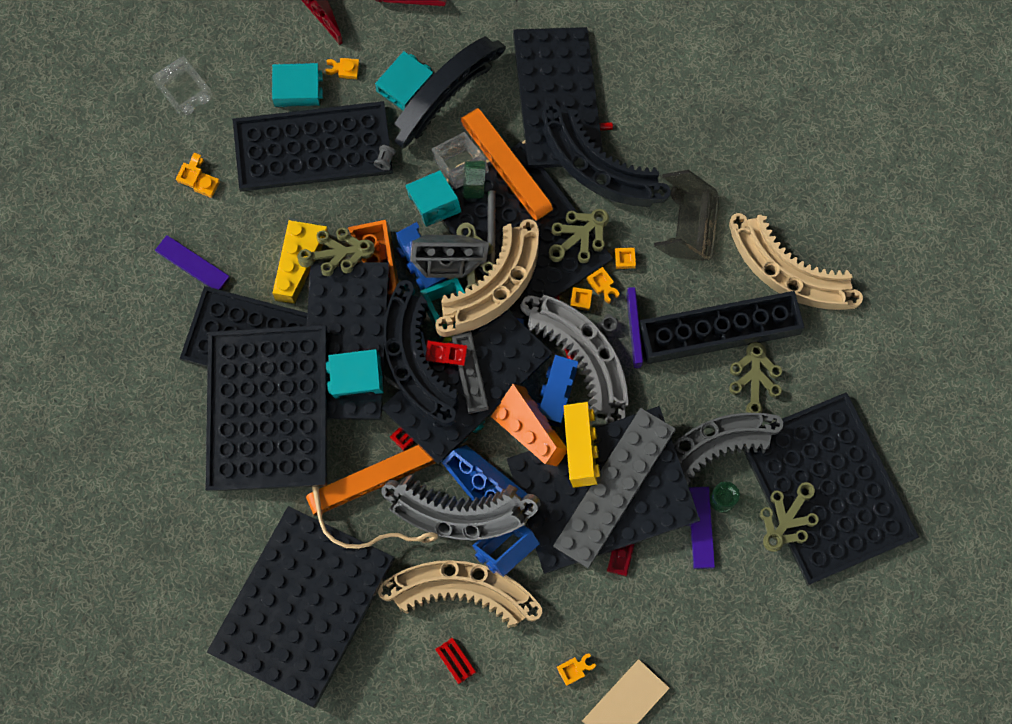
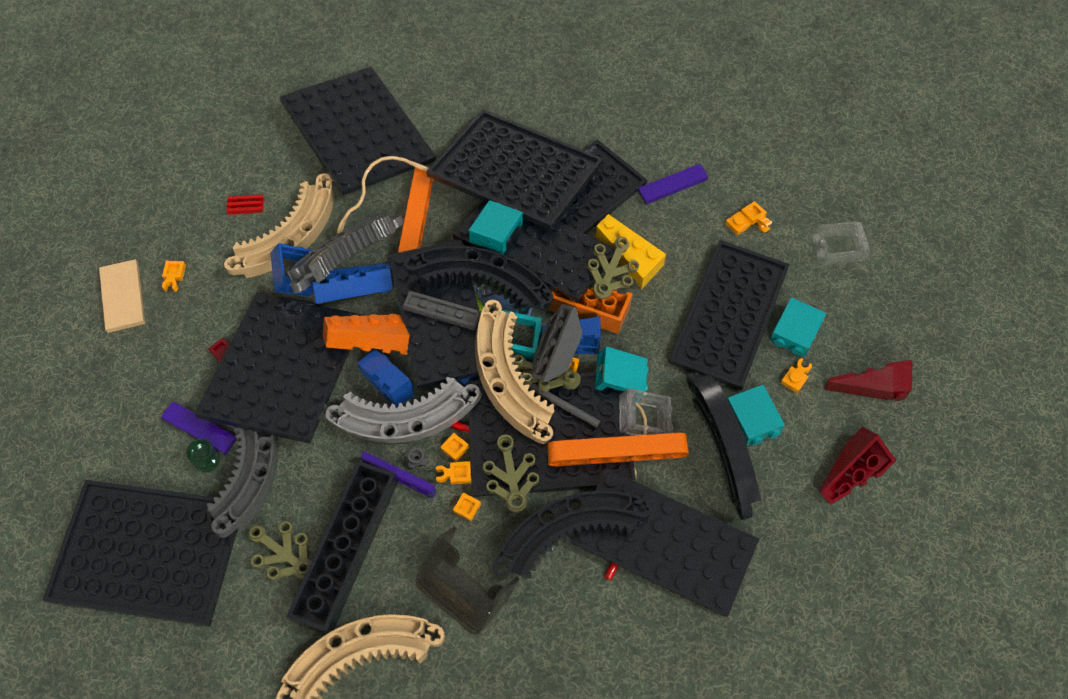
camera: 125 degrees right, 10 degrees down
(385, 157) = (682, 354): dark grey bush -> none
(446, 353) = (469, 299): red slope -> none
(474, 179) = (615, 407): clear green slope -> none
(580, 444) = (322, 357): yellow brick -> none
(615, 488) = (272, 369): dark grey plate -> none
(786, 519) = (143, 493): olive plant -> none

